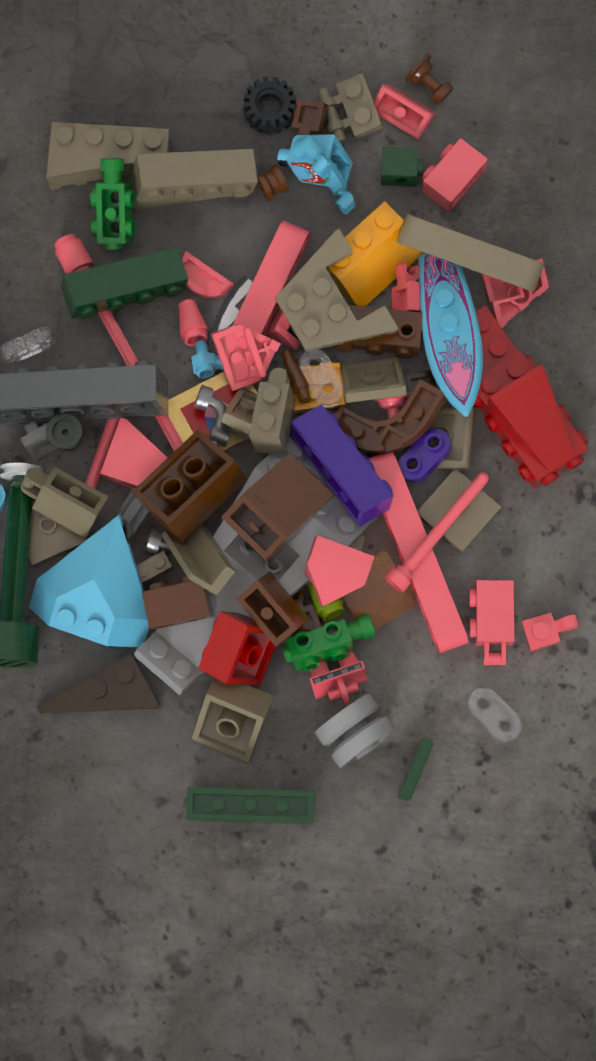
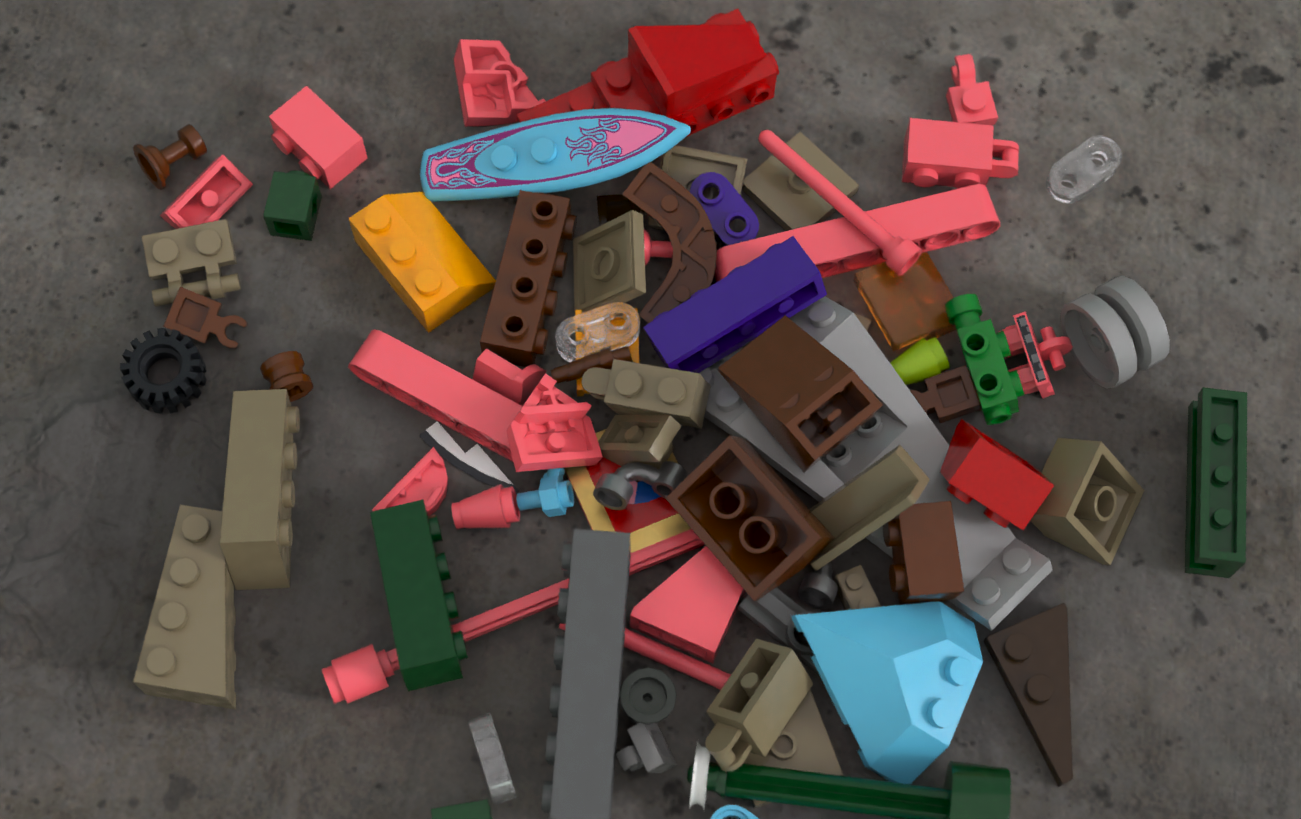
camera: 90 degrees left, 10 degrees down
(110, 211) = (294, 601): green brick -> none
(272, 608) = (945, 413): reddish brown brick -> none
(318, 308) = (496, 317): dark tan wing -> none
(321, 162) = (273, 298): medium azure torso -> none
(336, 569) = (889, 329): coral slope -> none
(407, 292) = (486, 215): coral plate -> none
(416, 769) = (1160, 270): dark green tile -> none
(470, 252) = (442, 118): dark tan beam -> none

